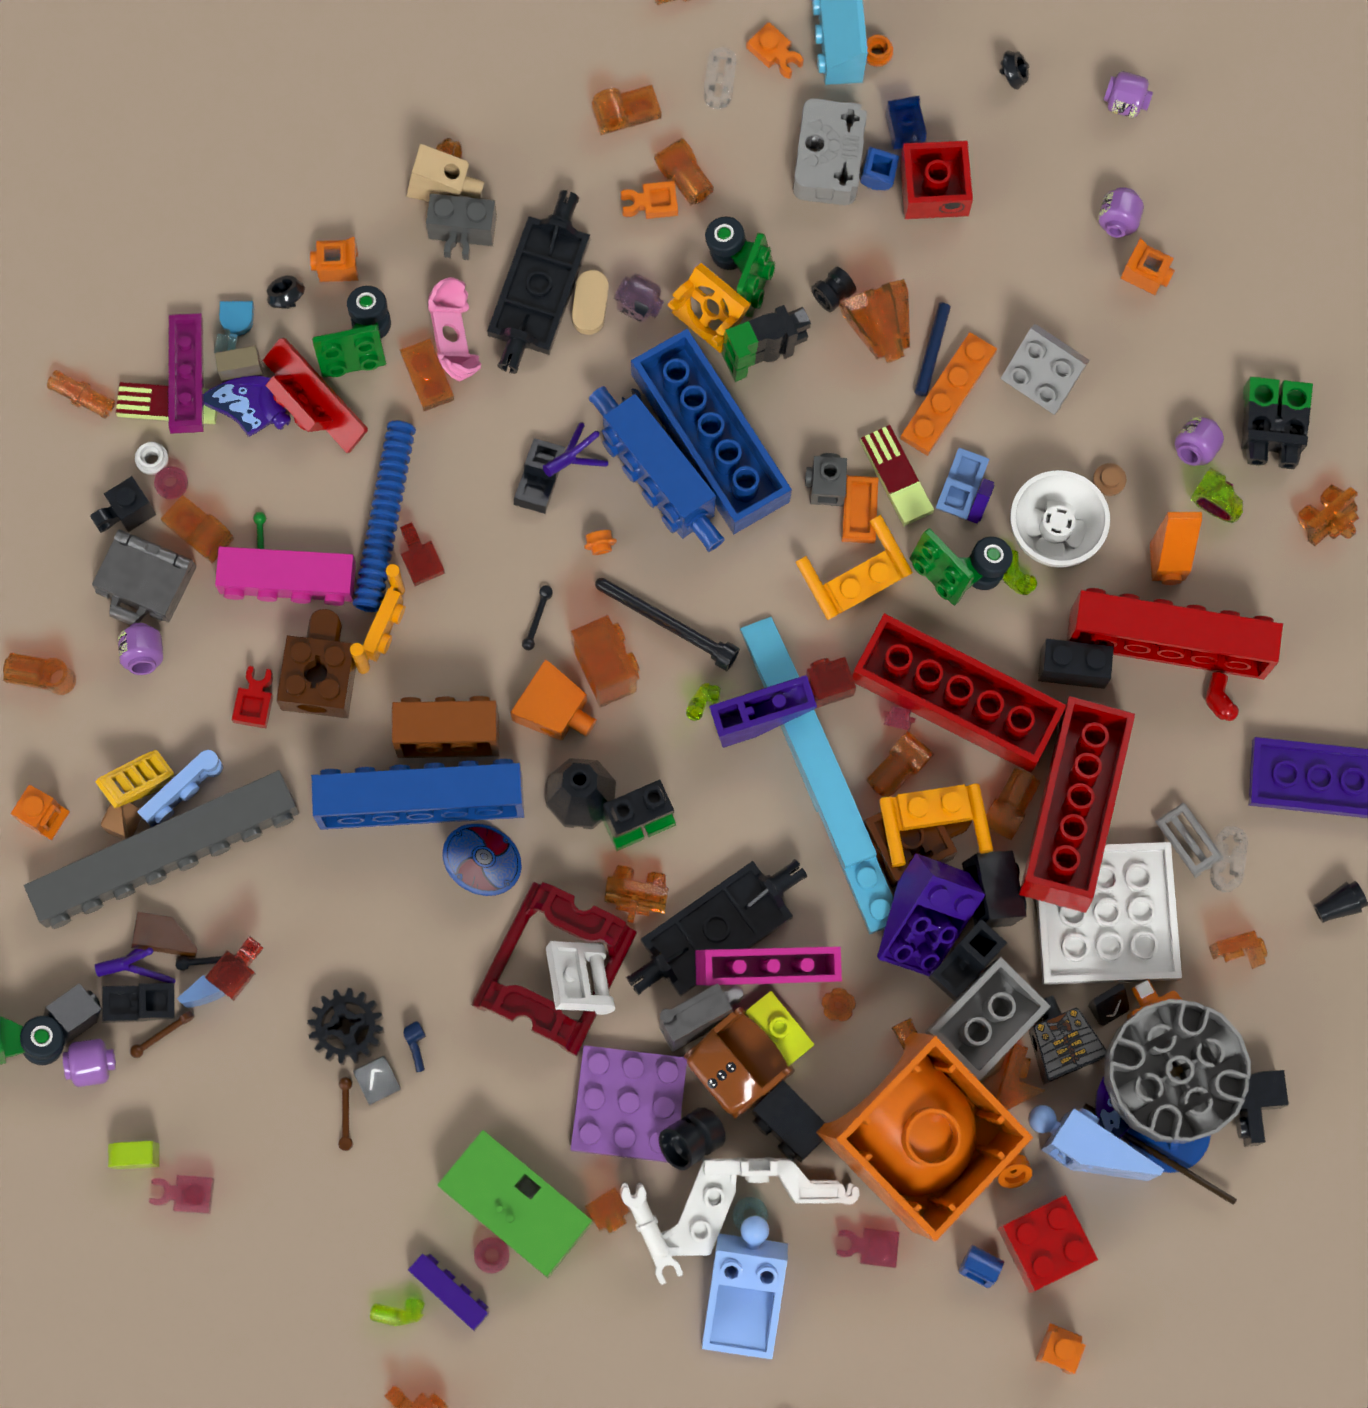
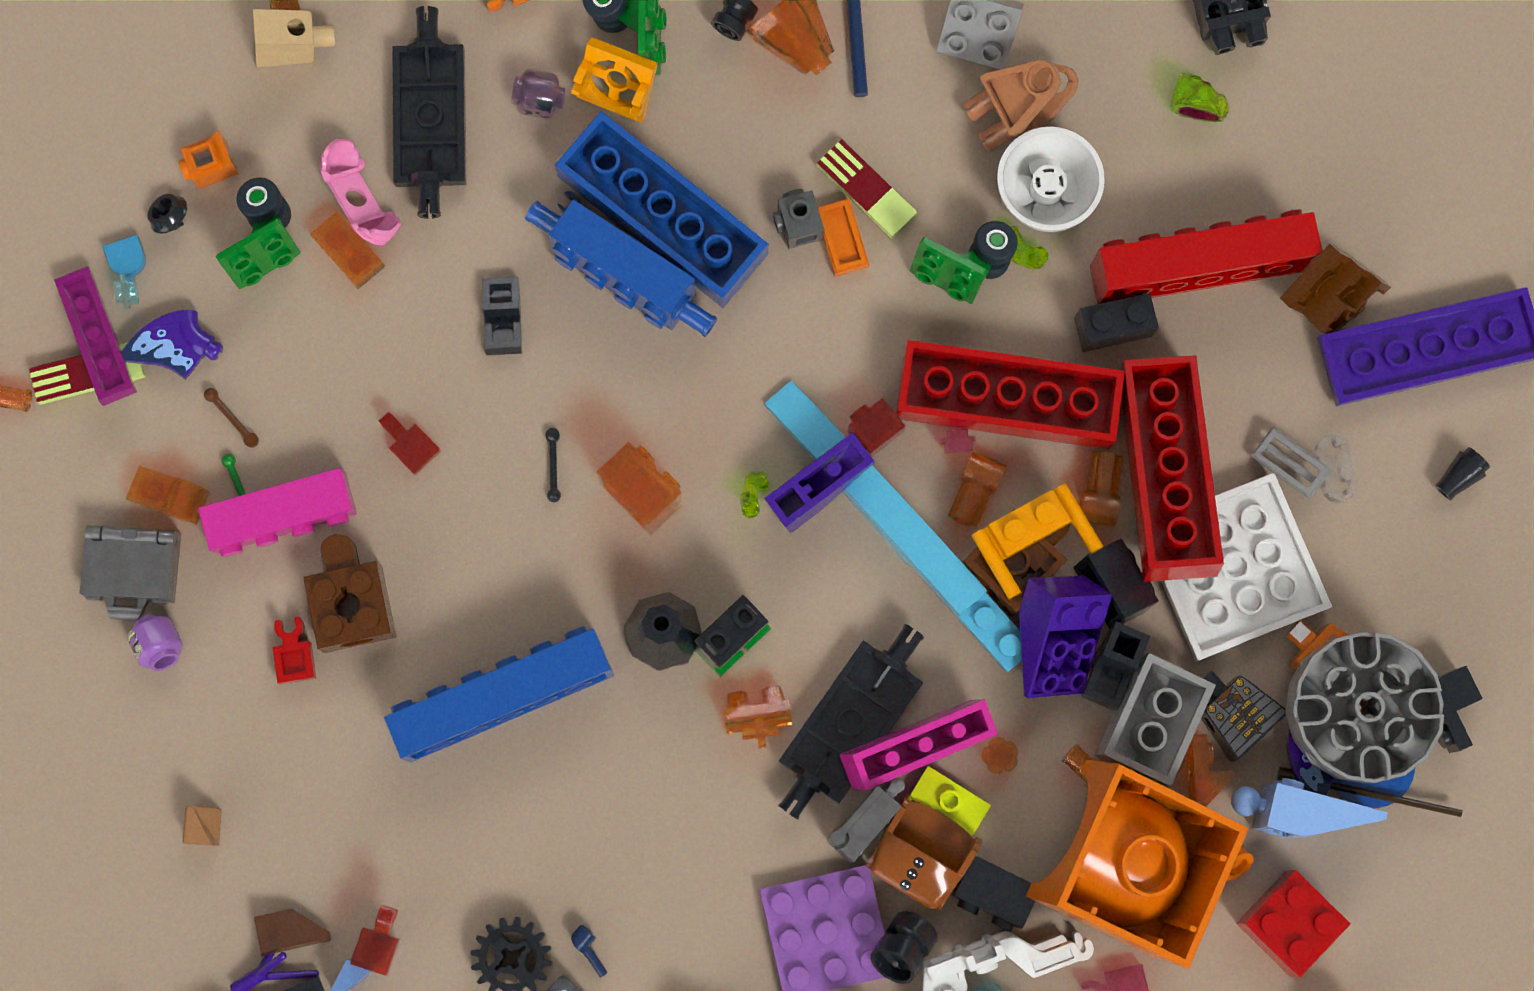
camera: 20 degrees left, 5 degrees up
(37, 673) = (57, 705): clear orange piece -> none
(40, 812) = (114, 850): orange window -> none
(126, 505) = (86, 497): black brick -> none
(147, 450) = (82, 432): white plate -> none
(152, 768) = (214, 763): yellow slope -> none
(161, 850) = (254, 844): dark grey brick -> none
(177, 489) = (130, 463): clear pink plate -> none
(181, 788) = (252, 771): light blue plate -> none
(184, 962) = (320, 951): black hinge -> none
(238, 363) = (147, 306): dark tan piece -> none
(285, 506) = (250, 439): none -> reddish brown hinge
(310, 397) = (234, 316): red bracket -> none
(384, 515) = (357, 414): blue piece -> none
(390, 612) = (399, 515): light orange plate -> none
(445, 727) = (502, 614): dark orange brick -> none
(461, 221) = (323, 76): dark grey brick -> none
(482, 859) = (588, 737): shield -> none
(518, 1001) = (709, 874): dark red piece -> none
(553, 705) = (603, 550): orange torso -> none
(569, 456) = (526, 284): dark purple plant -> none
(571, 979) = (723, 827): white plate -> none
(590, 302) = (488, 115): tan tile -> none
(600, 542) = (589, 364): orange plate -> none
(721, 653) = (754, 436): black piece -> none
(764, 339) = (683, 94): black hips -> none
(861, 580) = (870, 311): light orange plate -> none
(948, 394) = (889, 85): orange plate -> none
(962, 483) = (936, 174): medium blue slope -> none
(981, 501) = (962, 186): dark purple tile -> none
(981, 1267) = (1235, 969): blue brick -> none
(1059, 442) = (1023, 98): none -> nougat piece
(1109, 479) = (1083, 118): medium nougat plate -> none
(1110, 1004) = (1269, 658): black slope -> none
(1174, 547) = (1176, 169): orange slope -> none
(1199, 441) = (1159, 48): medium lavender head -> none
(1217, 699) = (1269, 309): red arm -> none
(1234, 948) = (1372, 557): clear orange bracket -> none
(1279, 700) = (1333, 290): none -> reddish brown slope
(1334, 519) = (1323, 84): clear orange hips -> none

